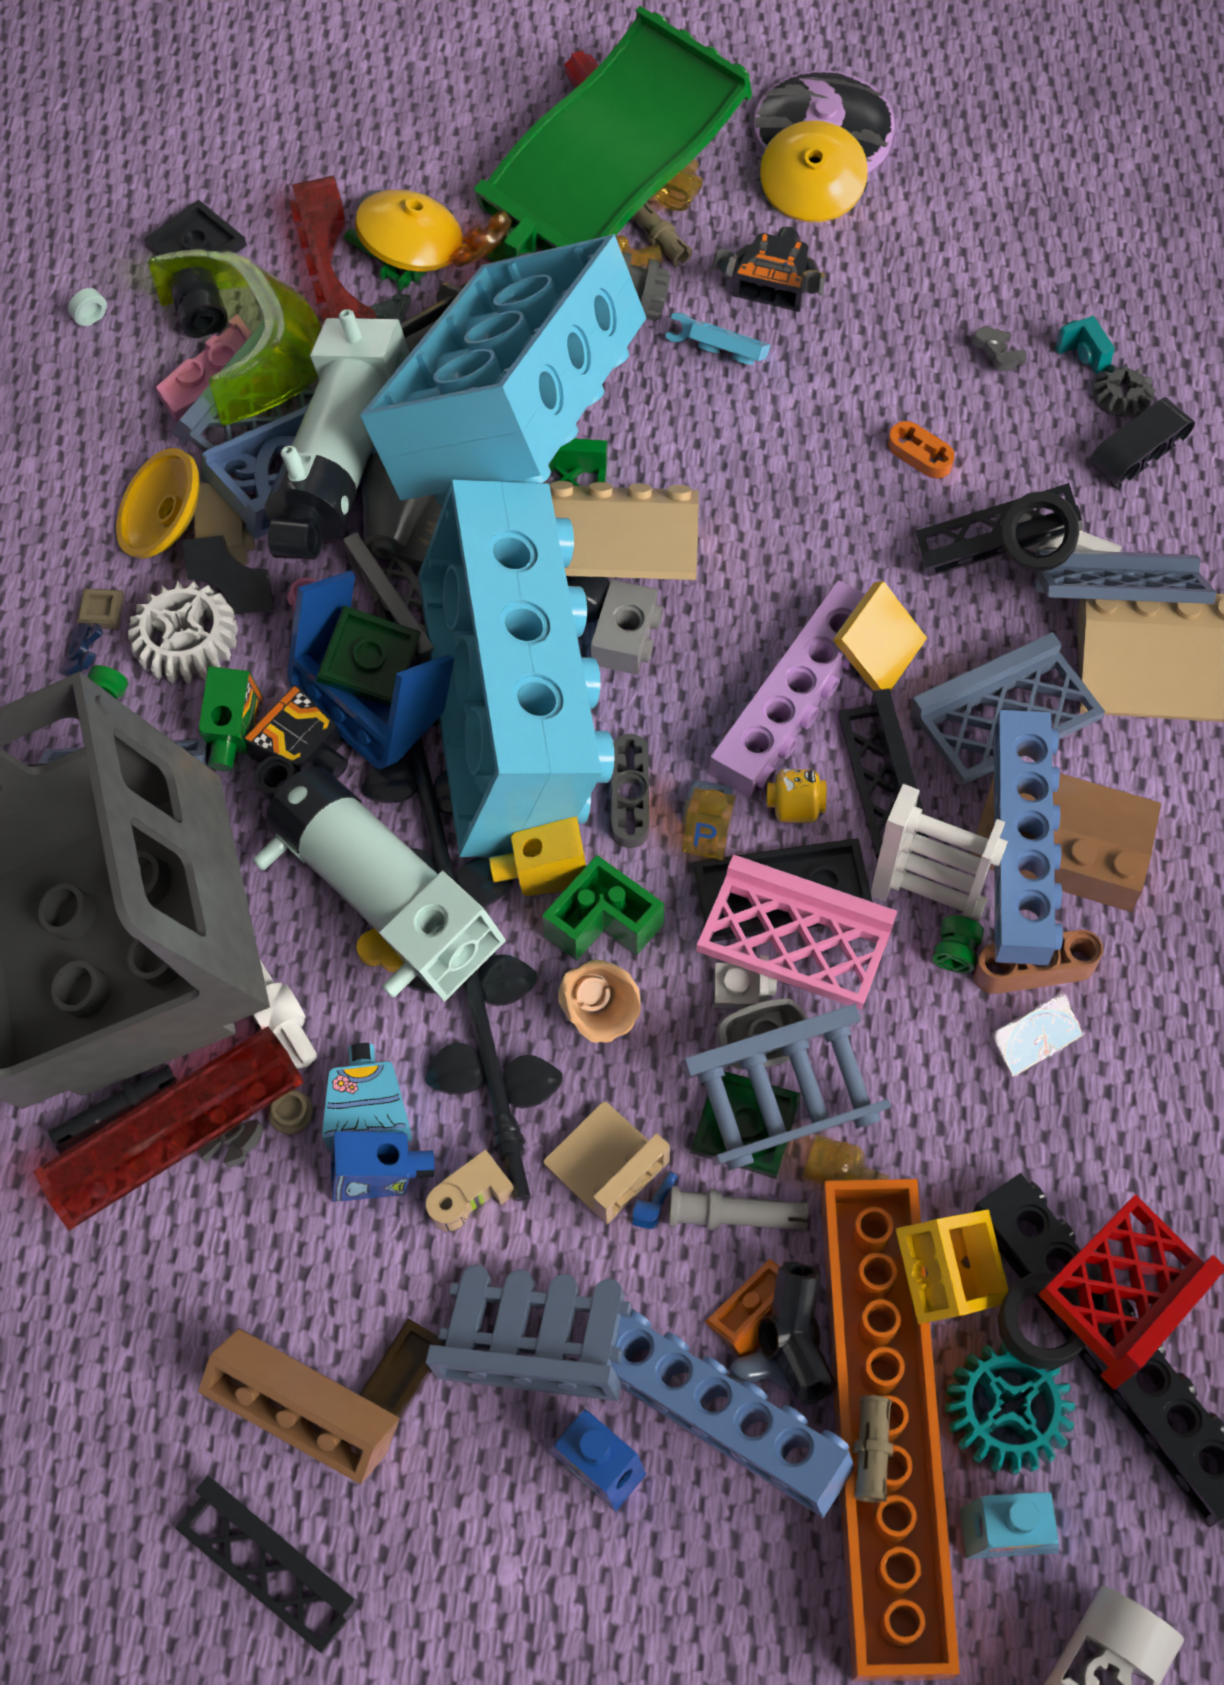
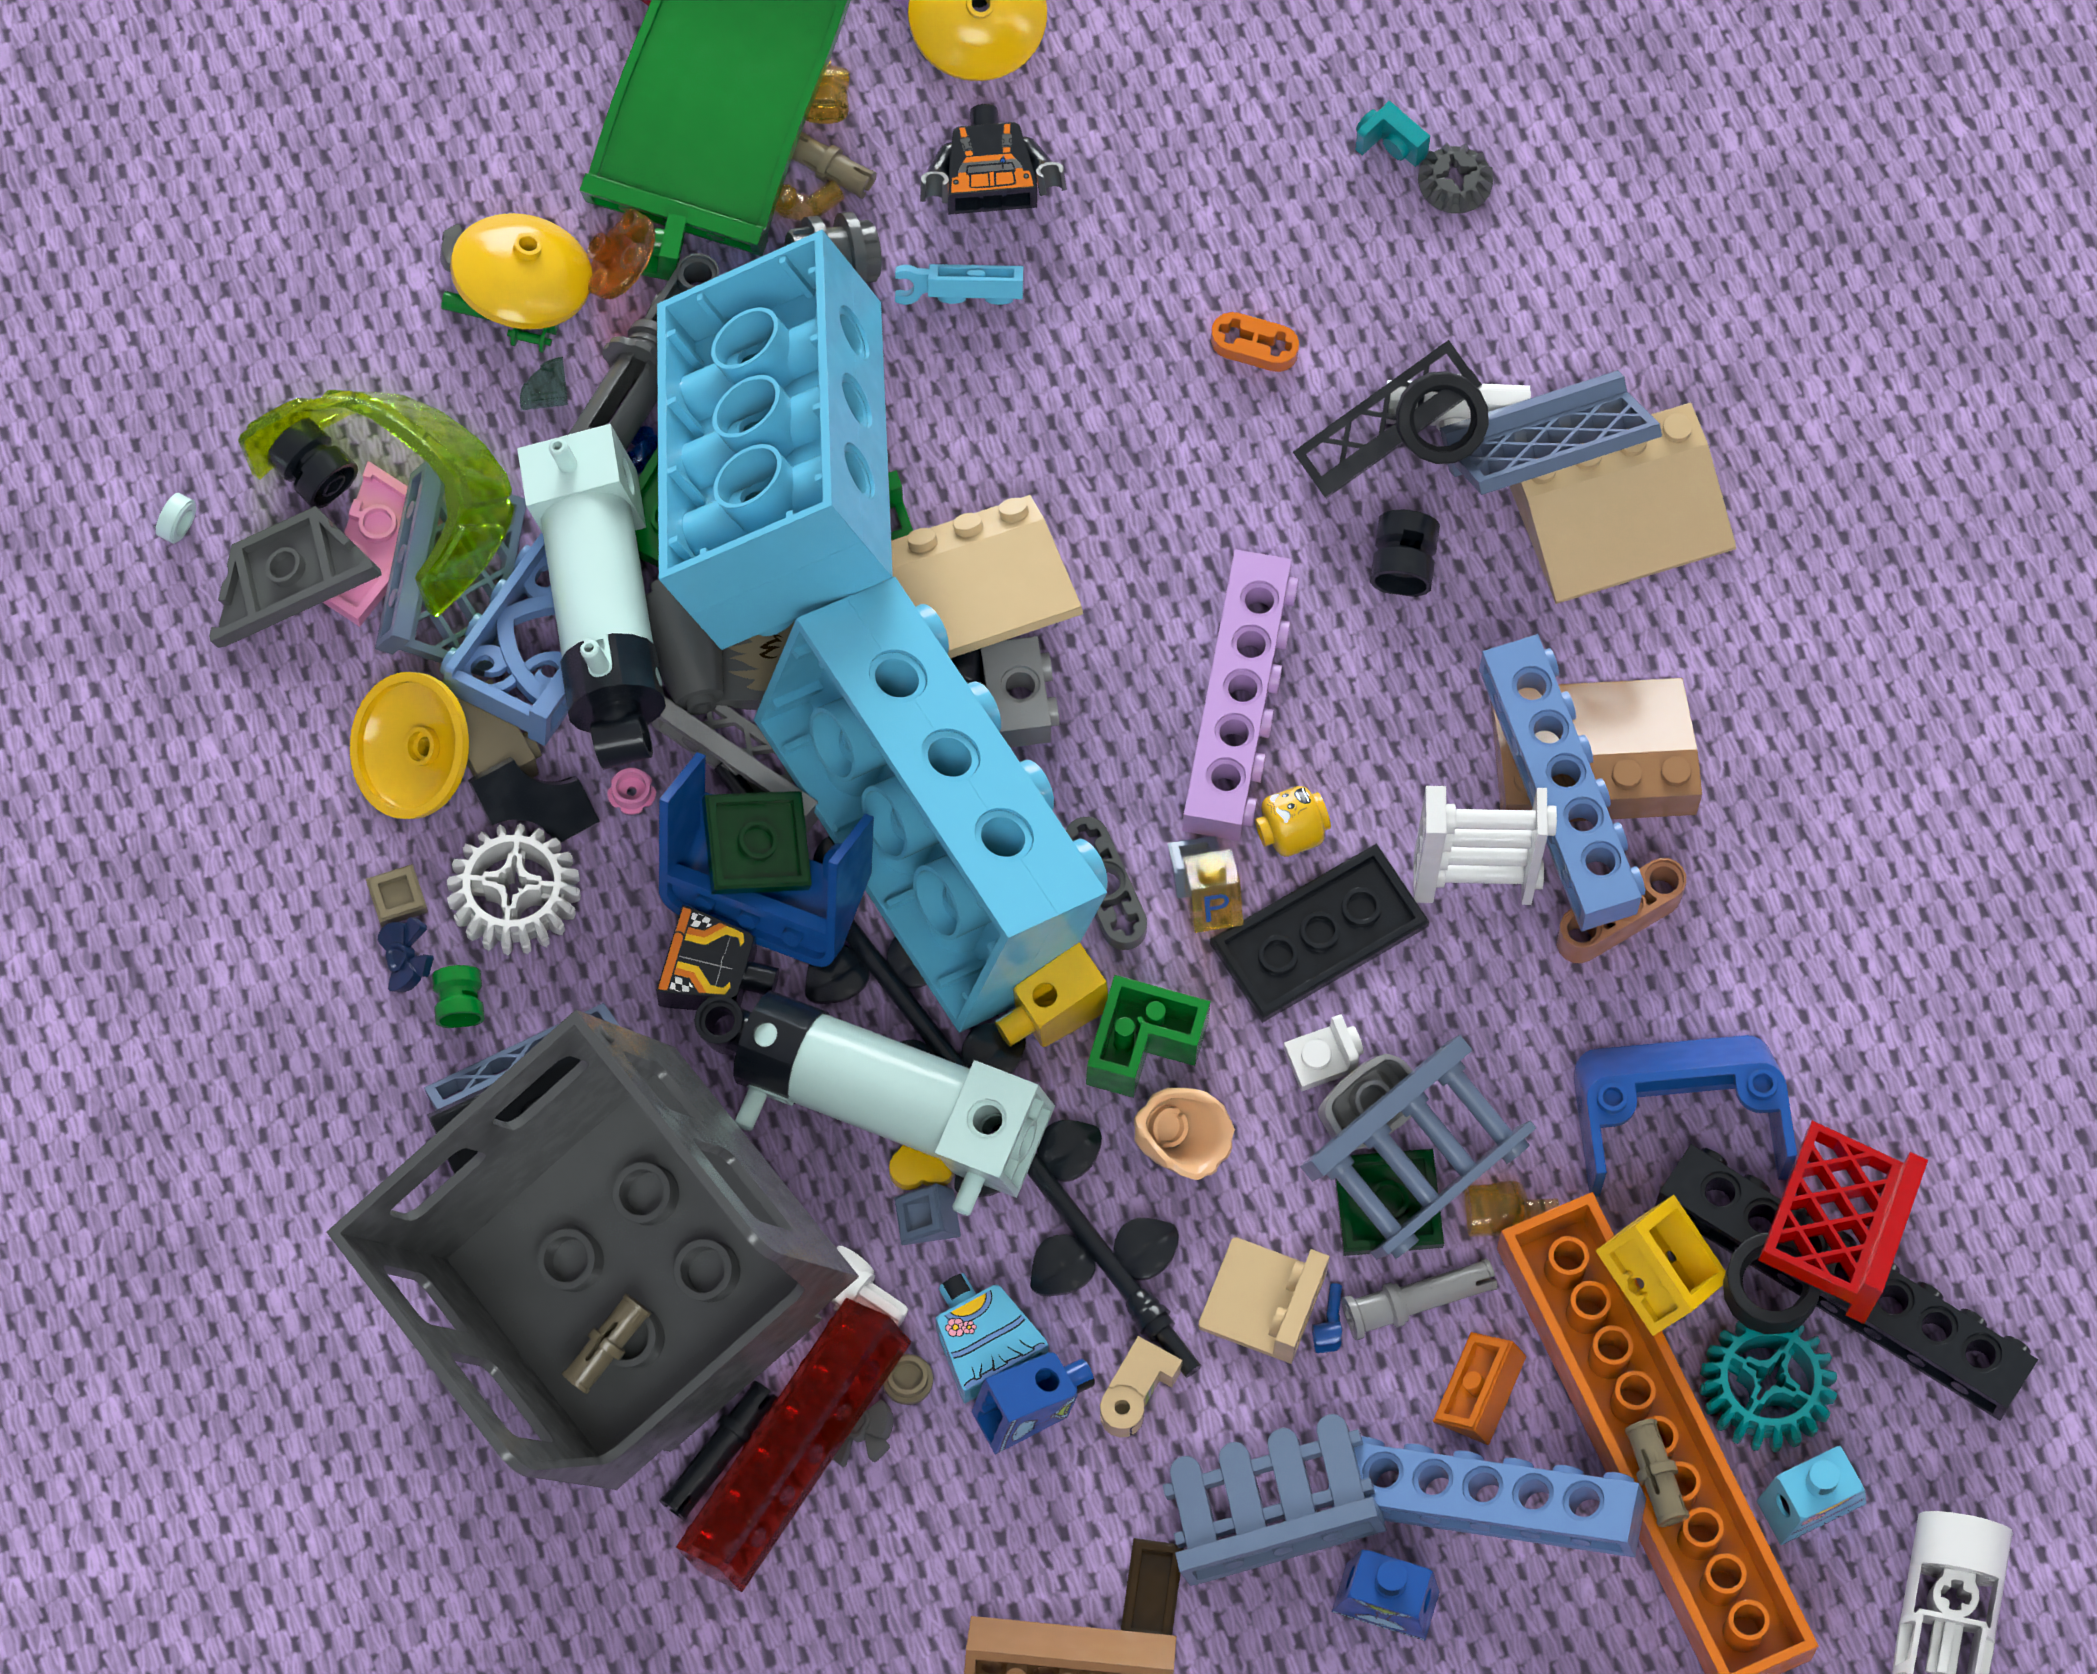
camera: 25 degrees left, 5 degrees up
(51, 983) = (606, 1343): none -> dark tan pin
(139, 365) = (287, 573): none -> dark grey wing
(195, 229) = (255, 373): black tile -> none
(228, 714) = (623, 953): green torso -> none
(322, 221) = (400, 288): clear red arch -> none
(366, 992) = (927, 1215): none -> sand blue slope
(758, 1367) = (1514, 1440): sand blue arm -> none
(794, 1334) = (1530, 1395): black piece -> none
(815, 905) = (1366, 939): bright pink fence -> none
(880, 638) = (1308, 602): yellow tile -> none
(892, 751) = (1383, 742): black fence -> none
(958, 944) = (1531, 923): green wheel -> none
(972, 630) = (1405, 553): none -> black wheel
(984, 685) = (1448, 605): sand blue fence -> none
(994, 345) = (1279, 170): dark grey piece -> none
(1035, 1036) = (1649, 992): slope -> none
(1094, 1125) = (1614, 1077): none -> blue windscreen
(1140, 441) = (1501, 241): black beam -> none

